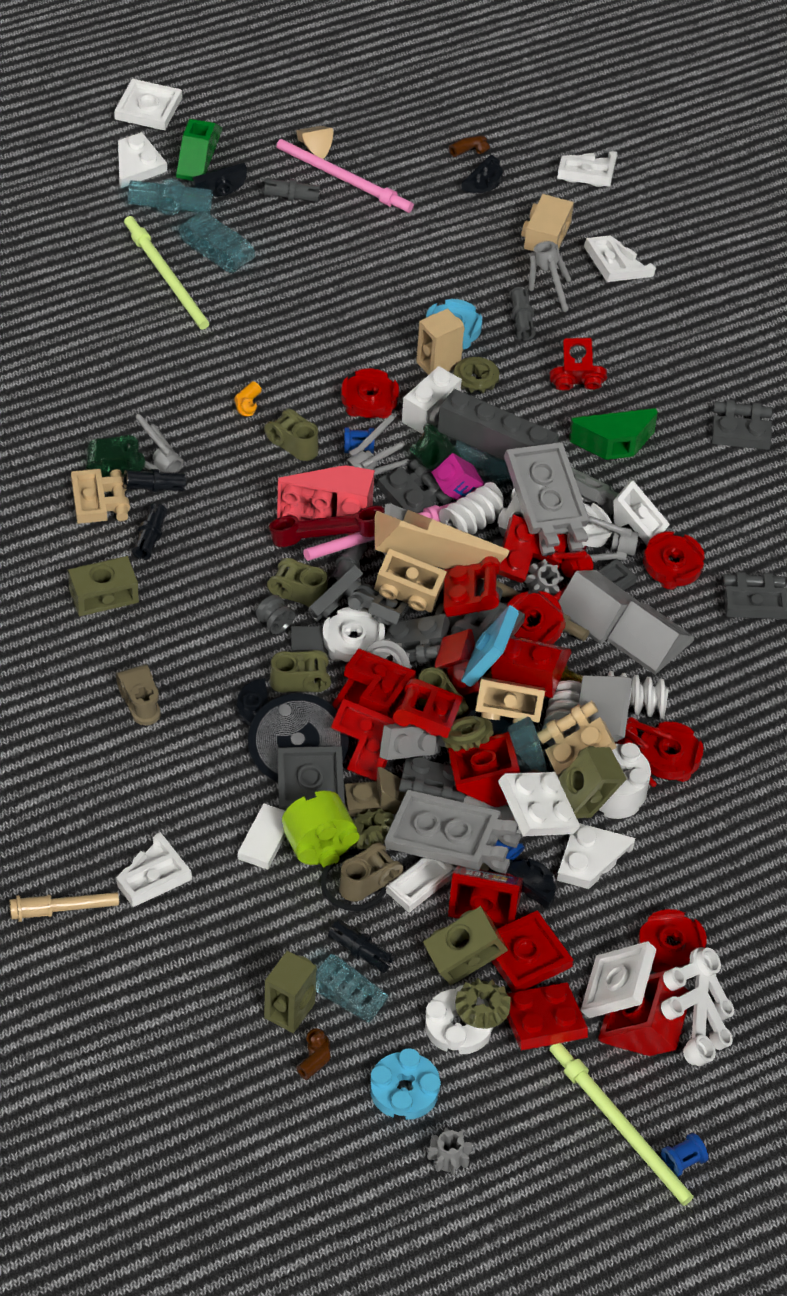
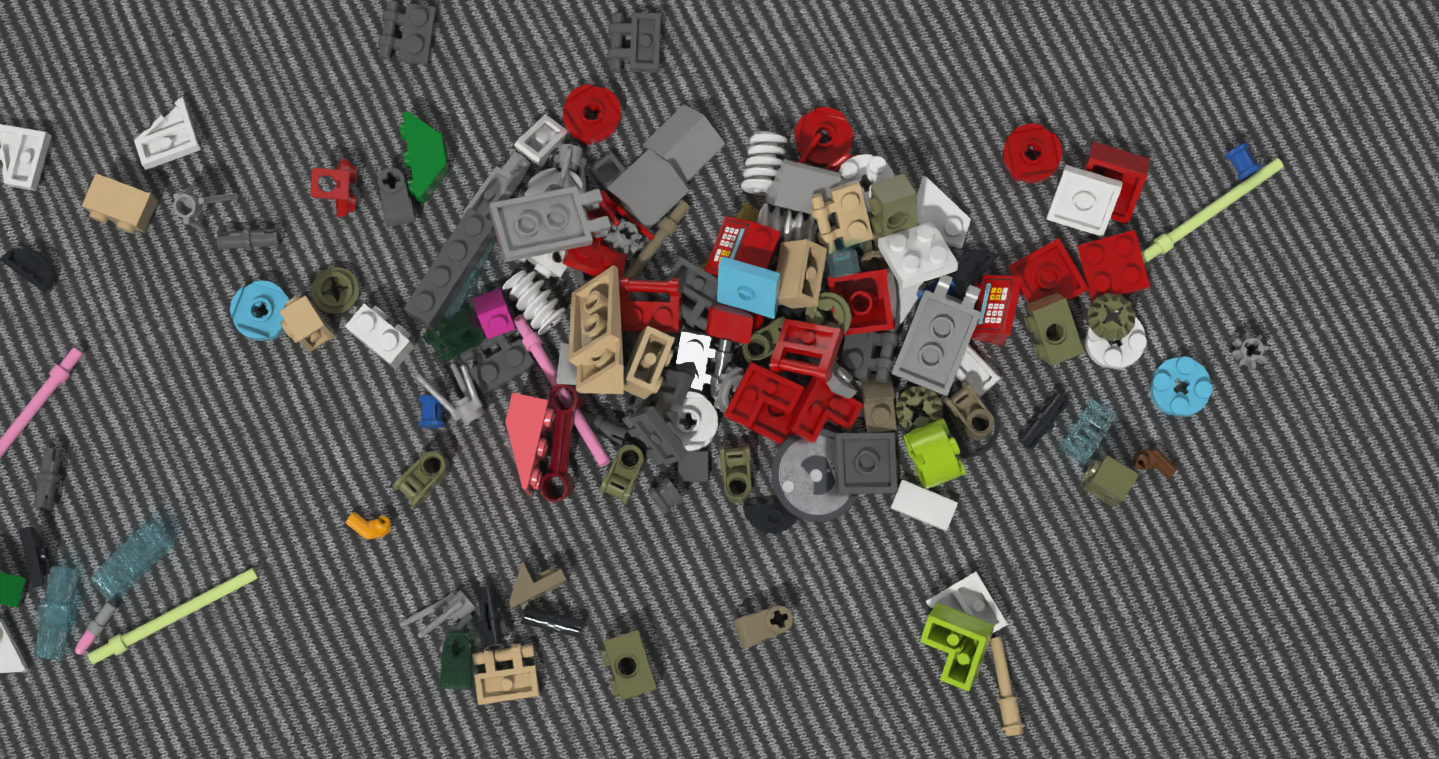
camera: 85 degrees left, 30 degrees up
(110, 849) = (963, 638): none -> lime brick
(157, 224) = (95, 627): none -> light grey piece
(186, 512) = (527, 589): none -> dark tan slope
(360, 404) = (377, 389): red plate -> none
(543, 605) = (676, 233): red plate -> none
(560, 409) = (396, 202): none -> dark grey piece
(704, 965) = (1077, 127): white plant -> none

